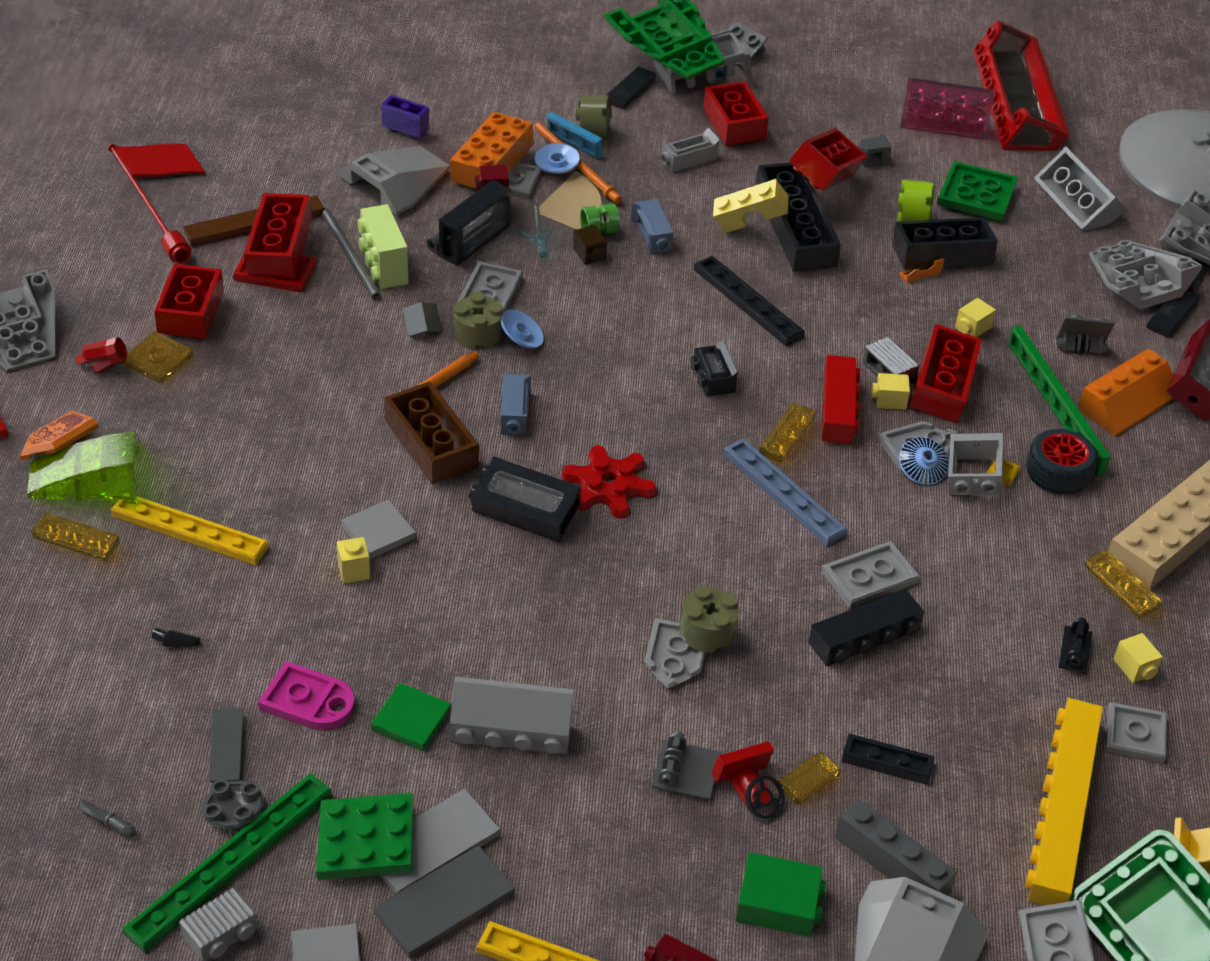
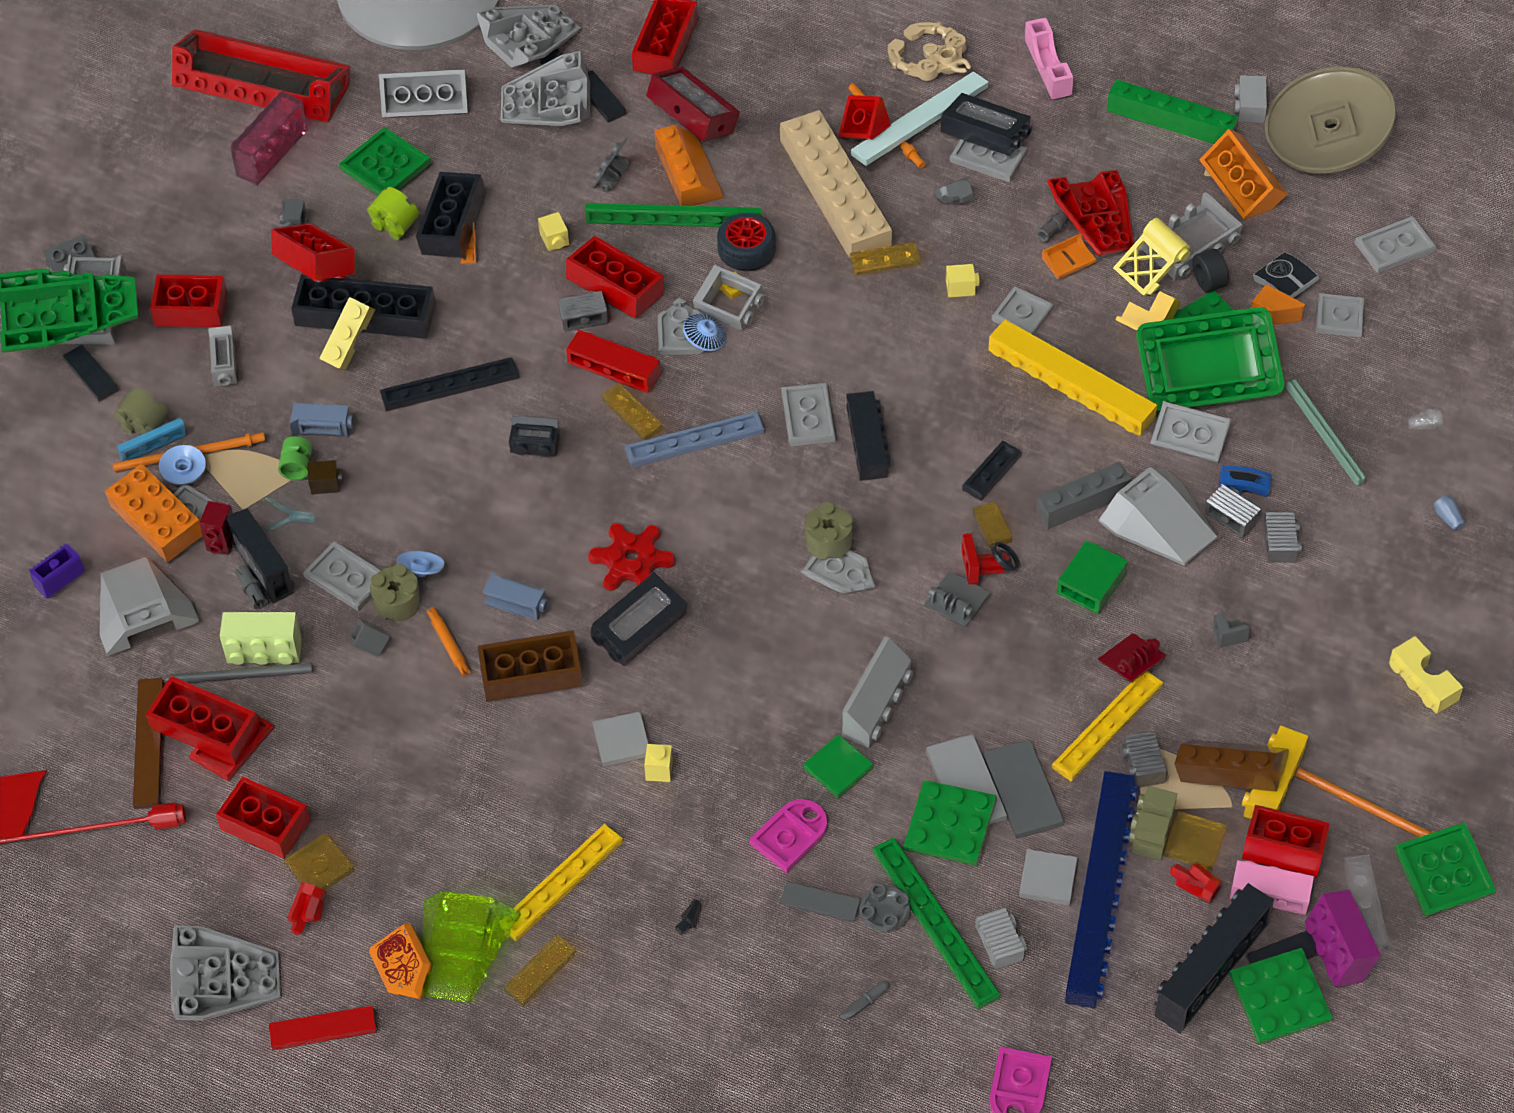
camera: 65 degrees left, 10 degrees up
(891, 391) = (616, 322): light yellow brick -> none
(1076, 646) = (933, 314): black hinge -> none

